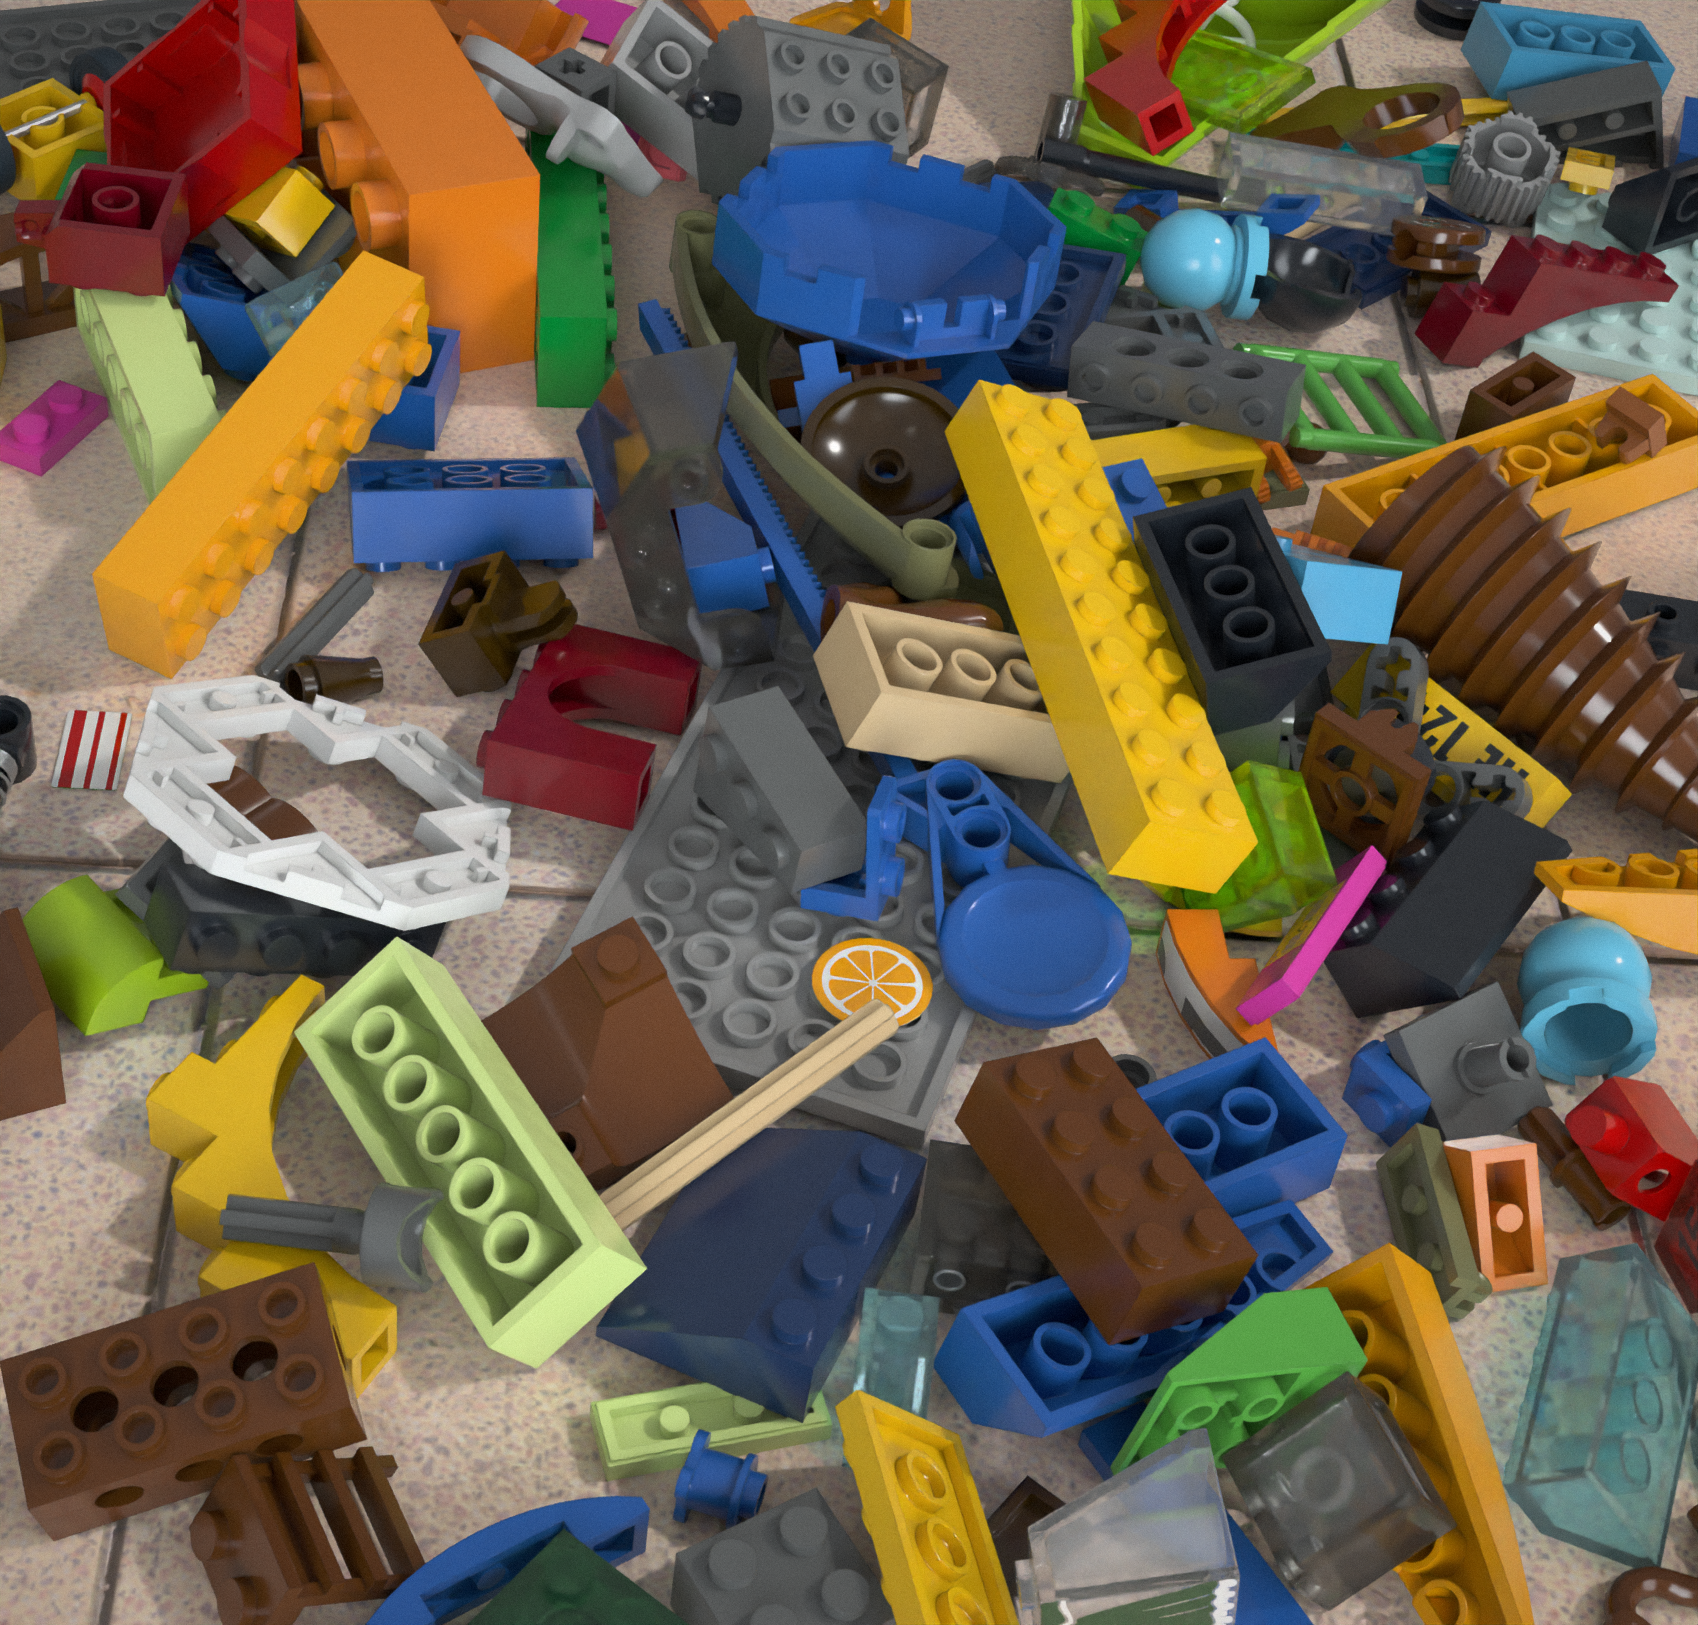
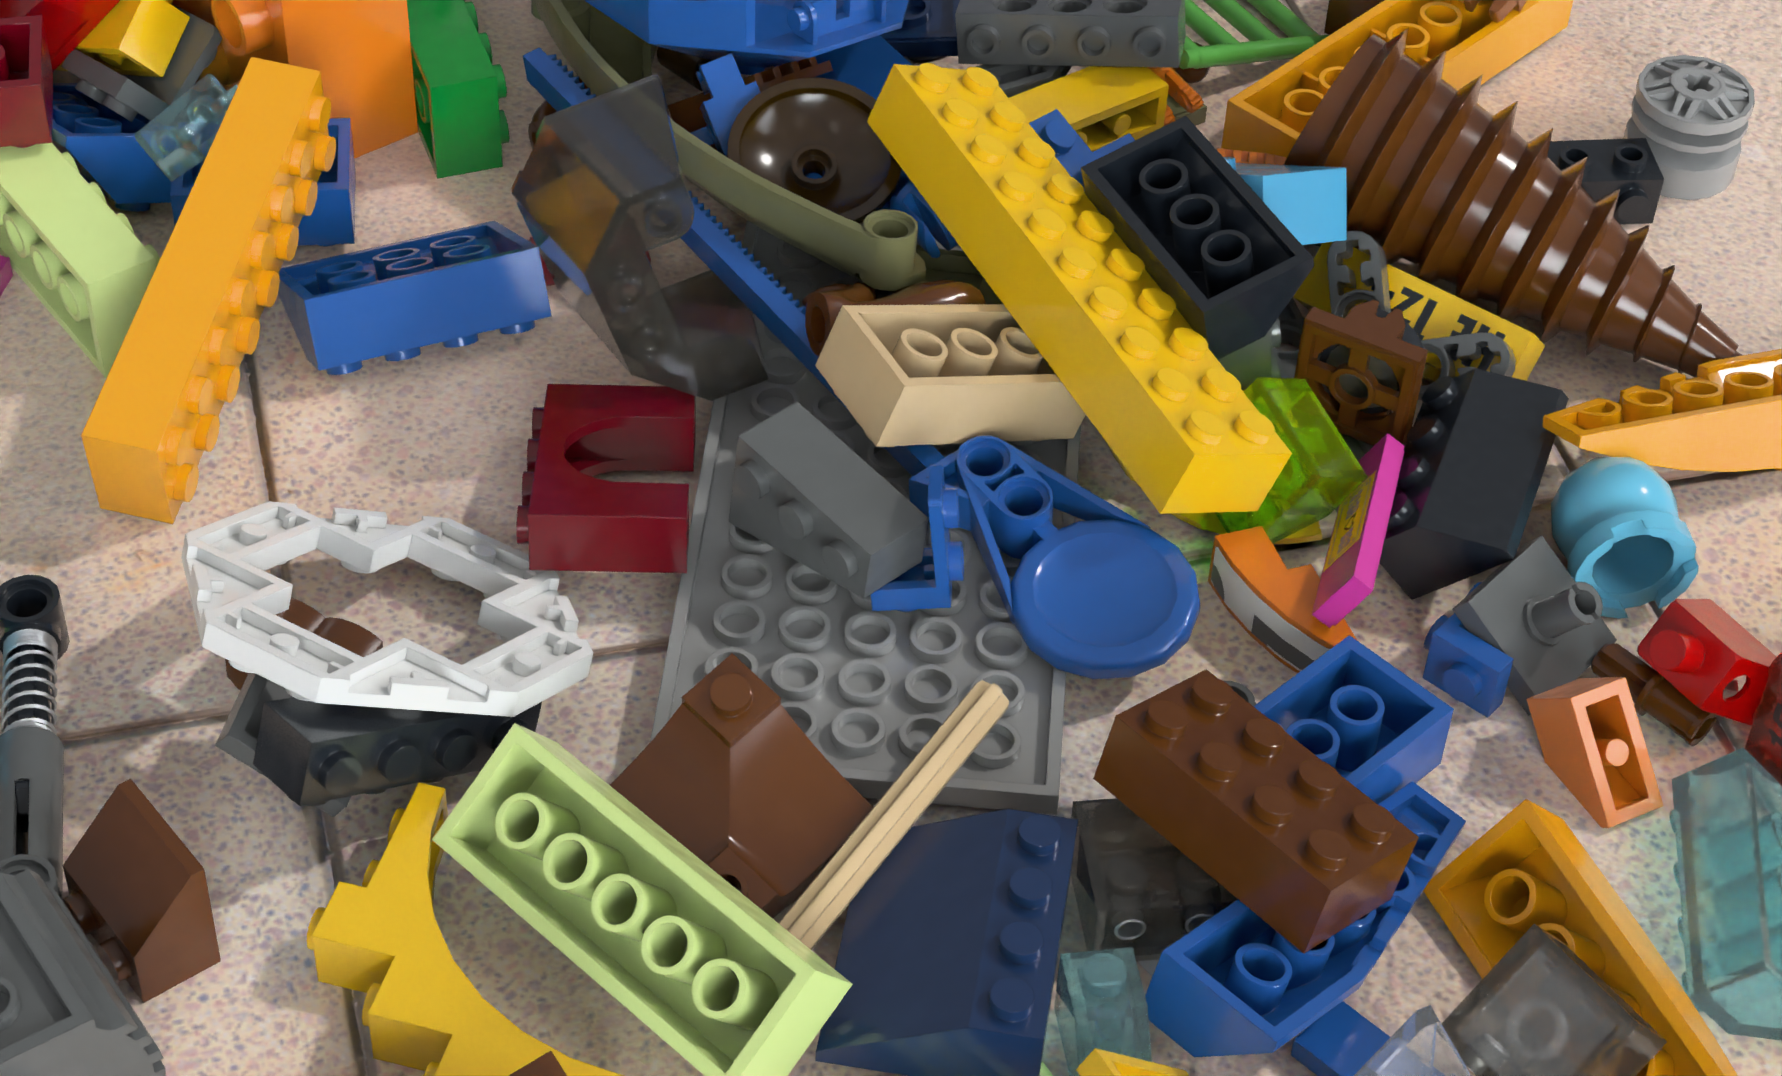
camera: 10 degrees left, 0 degrees up
(92, 750) = (119, 611): sticker -> none
(99, 957) = (218, 807): lime brick -> none
(318, 624) = (302, 441): dark grey axle -> none
(333, 678) = (338, 487): dark brown cone -> none
(383, 1235) = (594, 1012): dark grey piece -> none
(488, 620) = (476, 396): dark brown brick -> none
(723, 559) = (698, 292): blue slope -> none
(868, 970) = (953, 658): light orange sticker -> none
(1249, 1374) = (1442, 951): bright green slope -> none
(1429, 1218) = (1542, 767): olive hinge -> none

